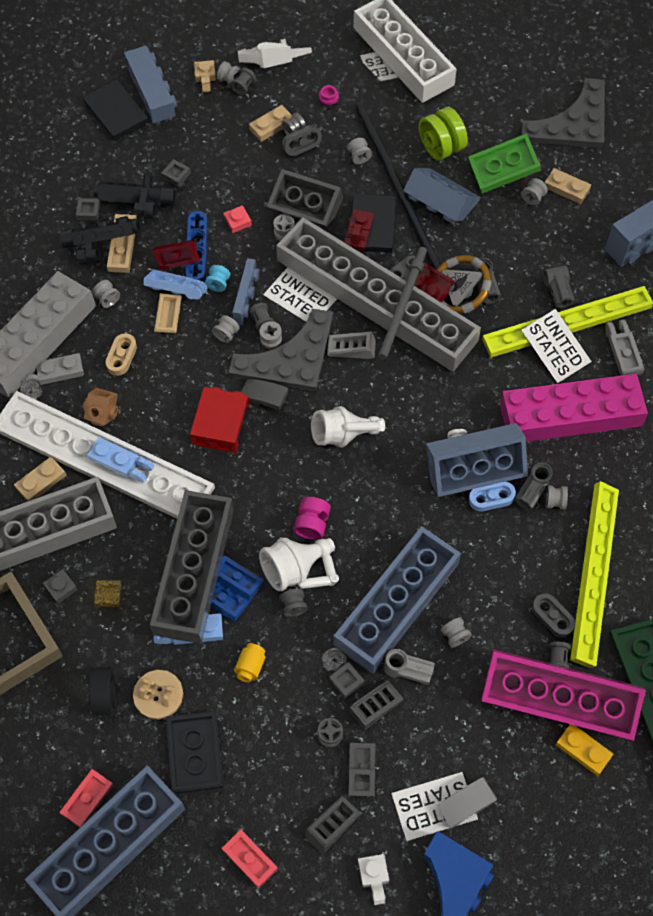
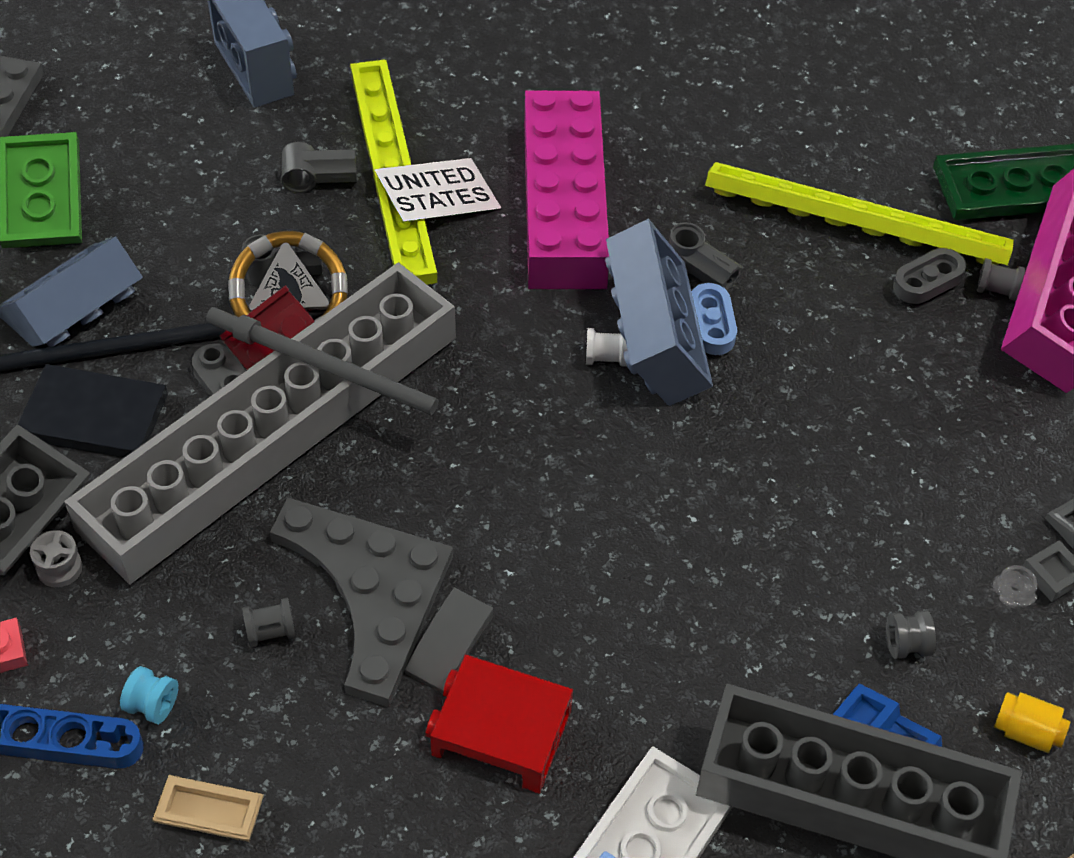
camera: 85 degrees left, 10 degrees down
(175, 283) = (139, 782): light blue hinge -> none
(176, 254) = (71, 764): dark red hinge -> none
(225, 329) = (282, 691): light grey wheel -> none
(245, 291) = (198, 645): sand blue plate -> none
(267, 339) = (318, 622): light grey wheel -> none
(289, 563) = (837, 623): white piece -> none
(298, 294) = (222, 559): white sticker -> none
(312, 518) = (742, 581): dark pink wheel -> none
(341, 426) = (563, 505): white piece -> none
(352, 351) = (372, 448): light grey slope -> none
(359, 229) = (108, 426): dark red hinge -> none
(396, 599) = (914, 470): sand blue brick -> none
(412, 667) = (1028, 478): light grey piece -> none
(456, 632) = (963, 401): light grey wheel -> none
(534, 191) = (112, 165): light grey wheel -> none
(556, 497) = (725, 233): light grey wheel -> none
(567, 186) = (112, 126): tan plate -> none
(624, 349) = (456, 112): light grey hinge -> none

